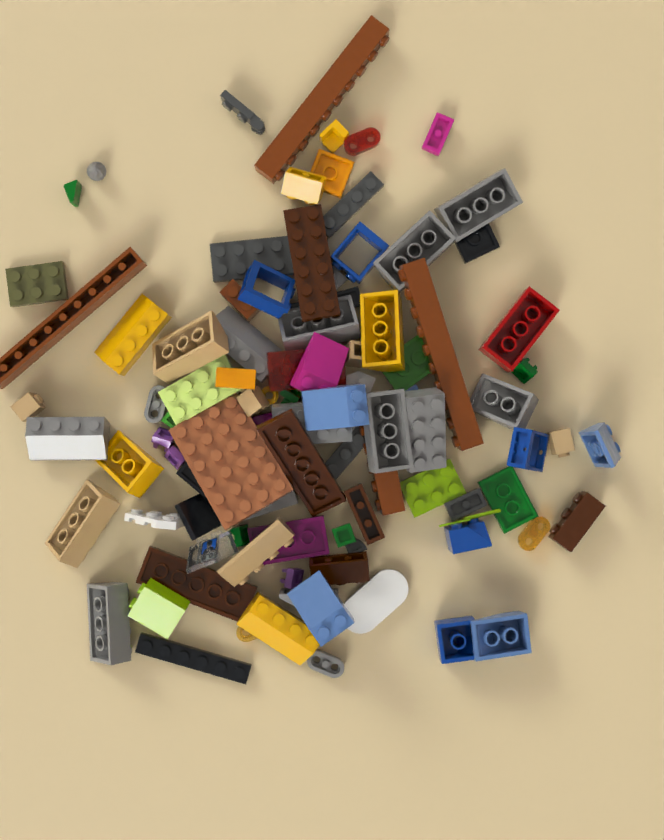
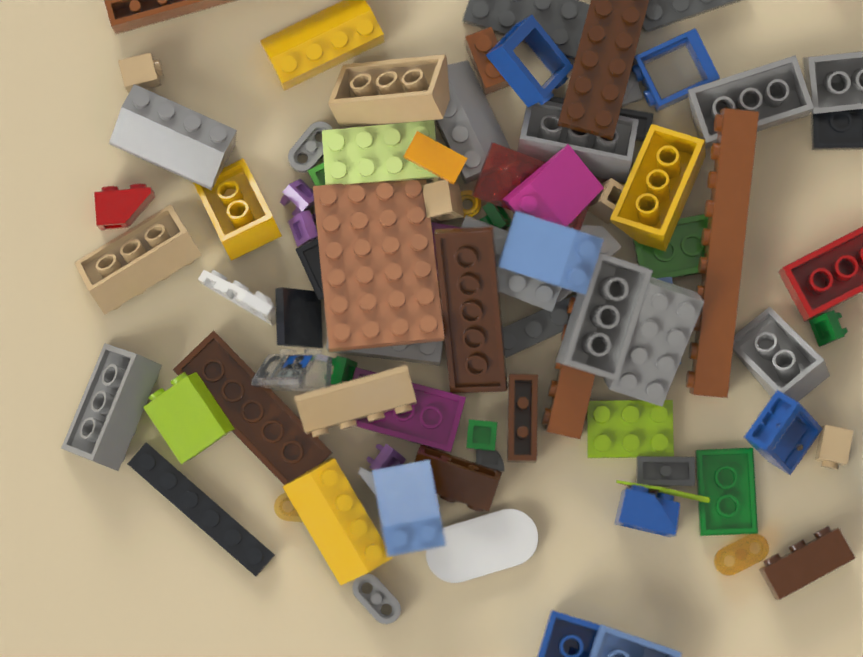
camera: 25 degrees right, 5 degrees down
(57, 496) = (121, 207): none -> red slope

